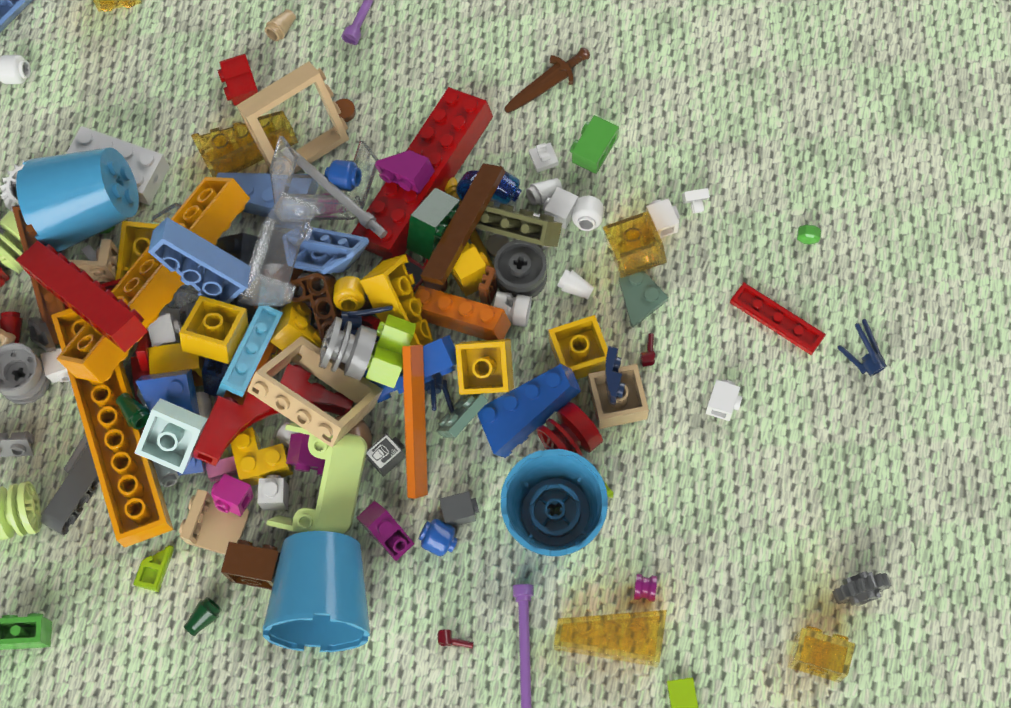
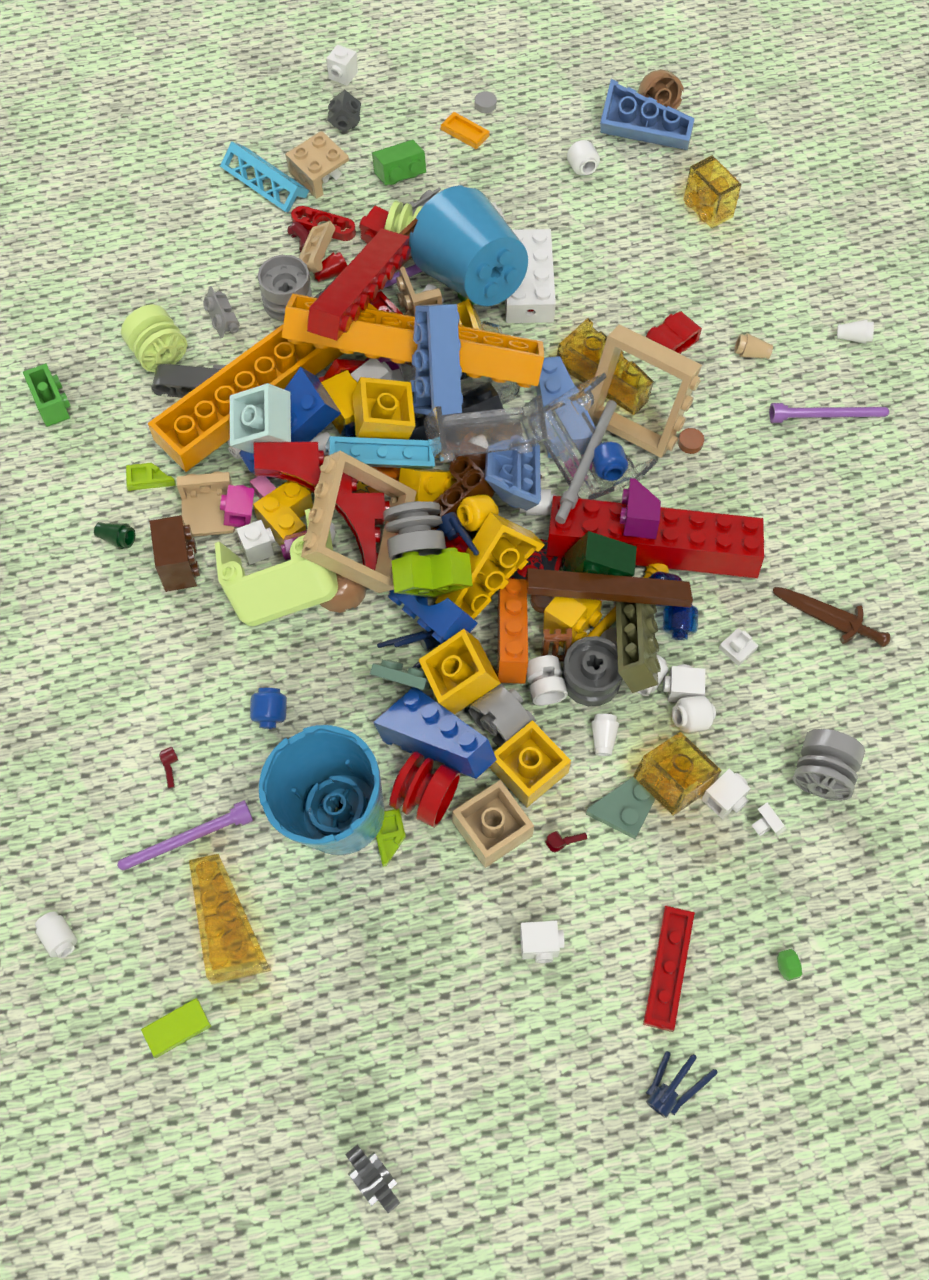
camera: 60 degrees right, 5 degrees down
(133, 411) = (276, 376): dark green cone -> none
(318, 594) = (162, 614): dark azure cone -> none
(385, 454) = (336, 624): dark grey brick -> none
(385, 530) = (257, 655): magenta slope -> none
(415, 421) = (373, 629): orange tile -> none
(459, 509) = (304, 712): dark grey brick -> none
(532, 352) = (500, 713): none -> light grey brick
(540, 191) = (698, 658): white cone -> none
(594, 144) = (778, 689): bright green brick -> none
(613, 379) = (494, 806): dark blue slope -> none
(645, 587) = (290, 935): magenta wheel -> none
(672, 136) = (829, 764): none -> light grey wheel
(821, 654) = (277, 1156): clear yellow brick -> none

